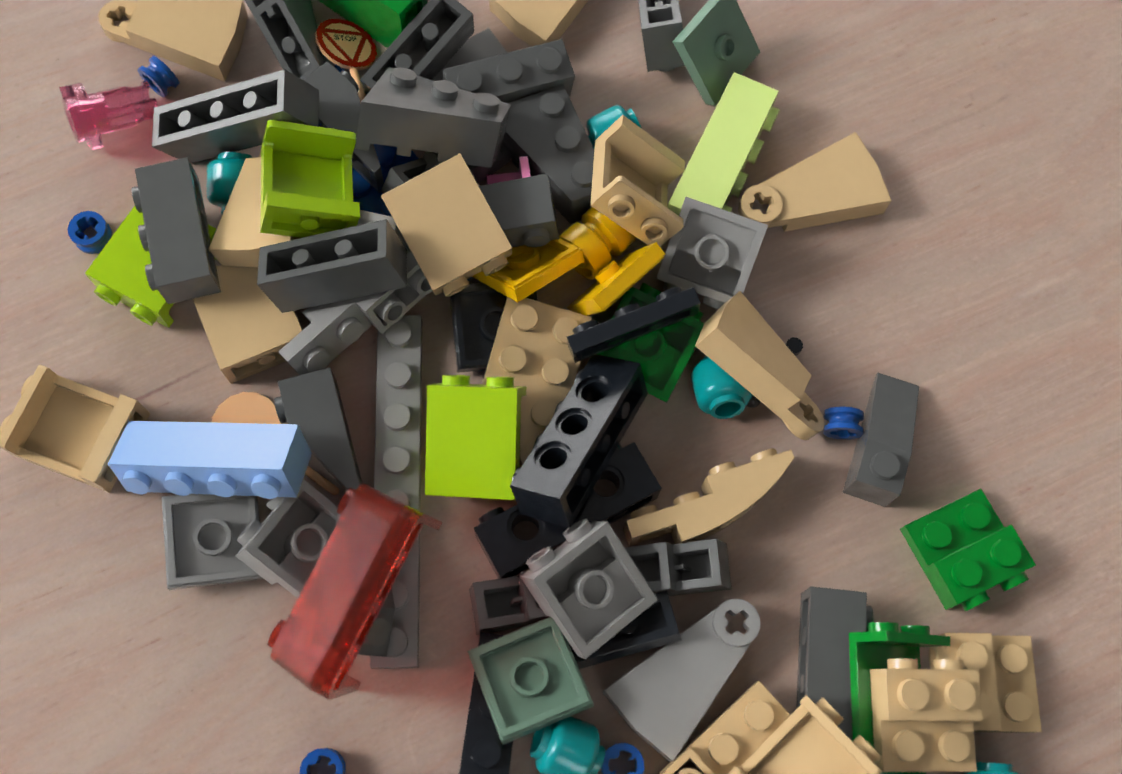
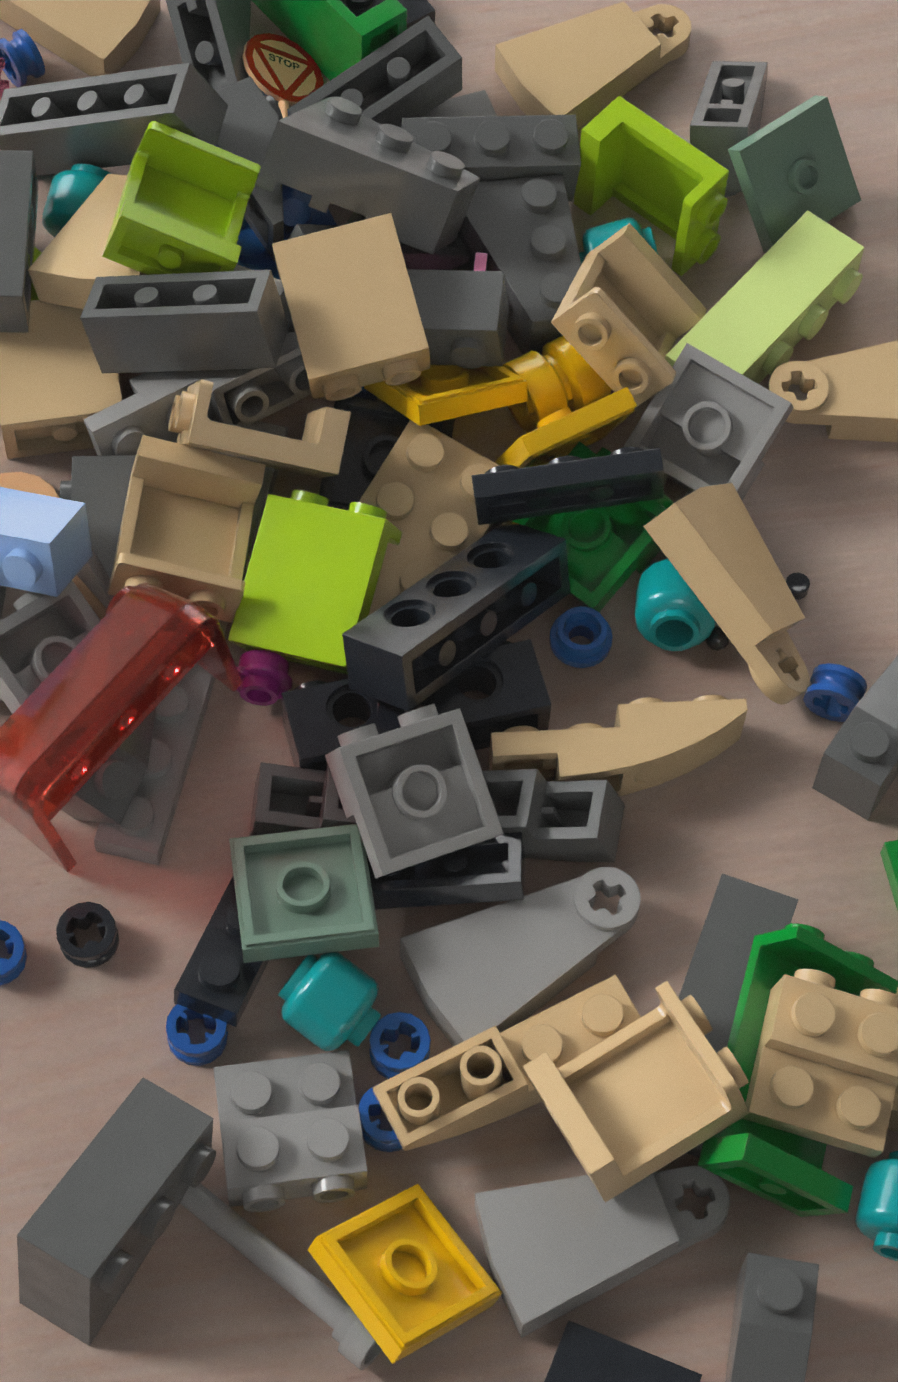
camera: 15 degrees right, 10 degrees down
(374, 423) = (187, 524): none -> tan panel
(377, 726) = (82, 916): none -> black bush
(448, 343) = (314, 456): none -> tan panel
(454, 512) = (263, 677): none -> magenta plate
(626, 70) = (654, 175): none -> lime panel
(667, 412) = (585, 623): none -> blue plate

